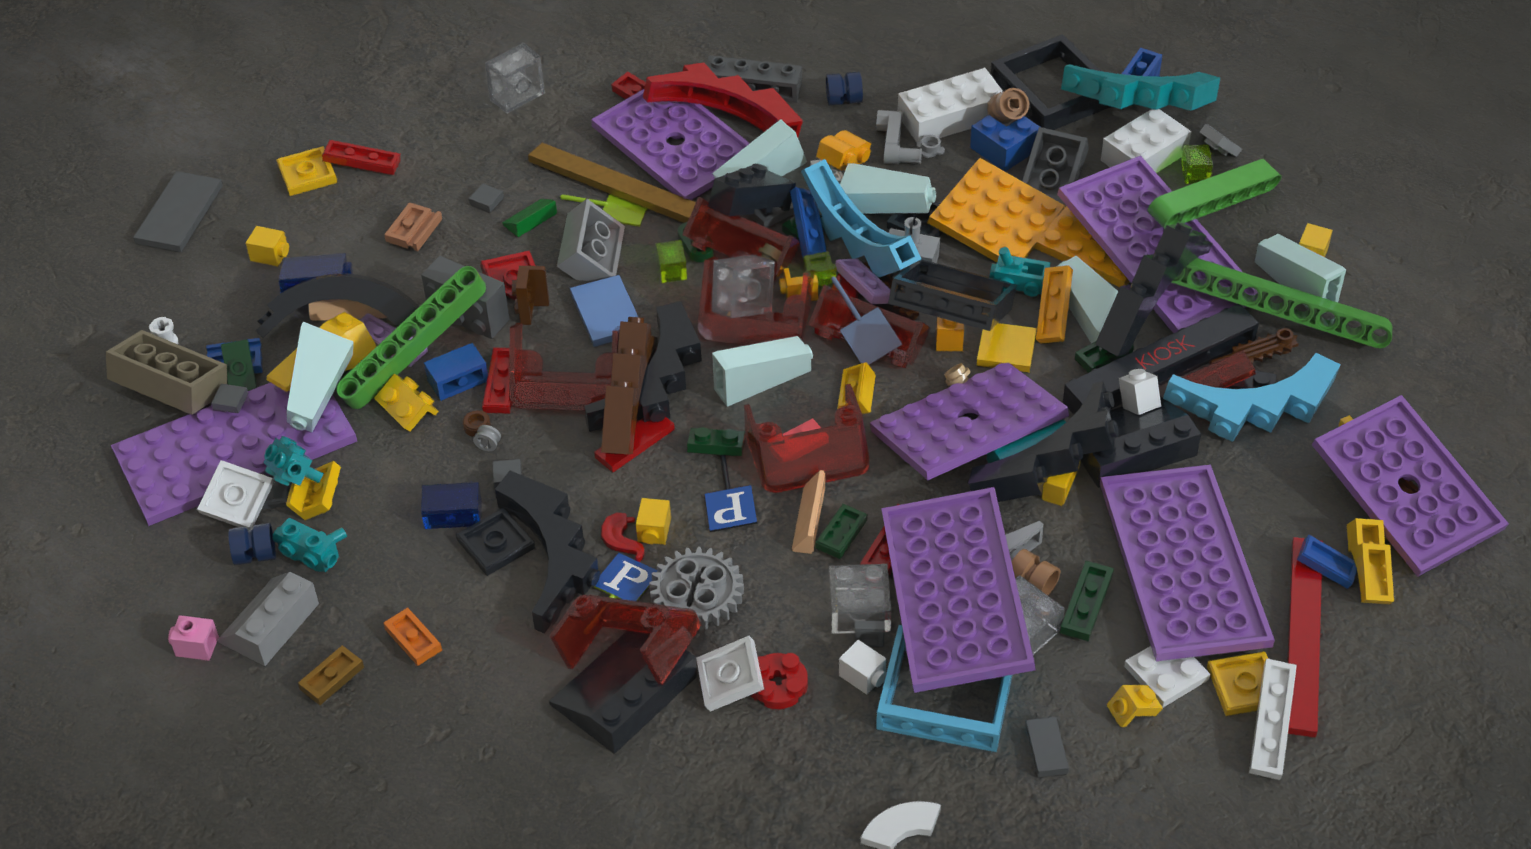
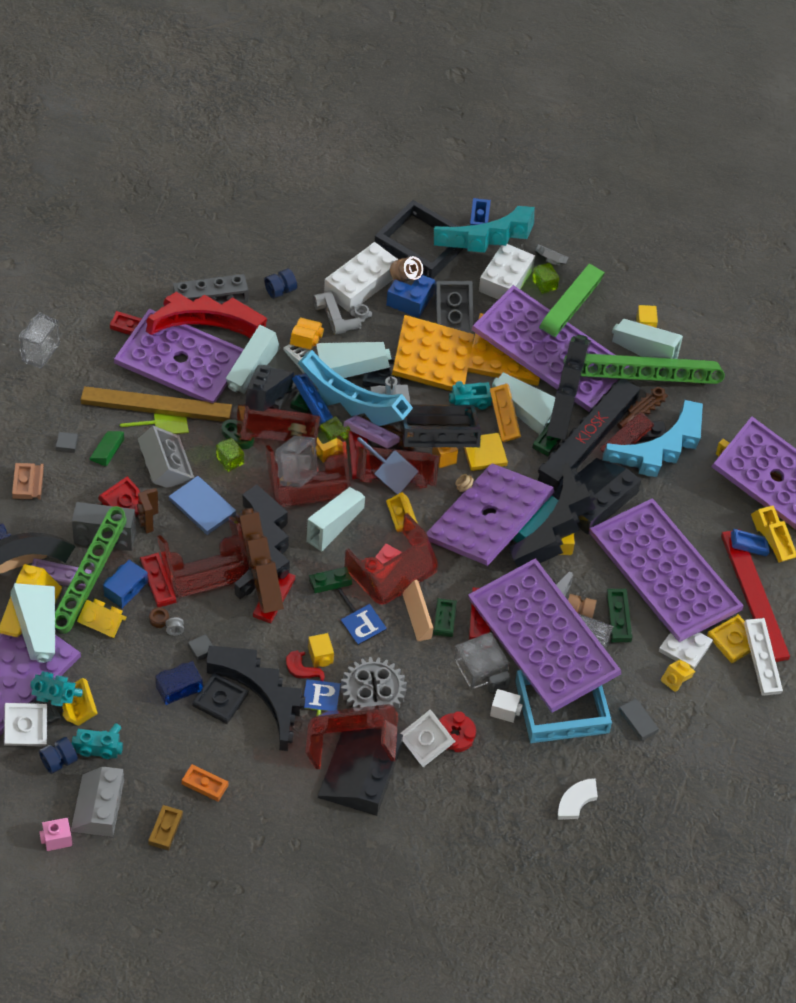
camera: 30 degrees left, 5 degrees up
(1139, 391) = (589, 461): white brick -> none

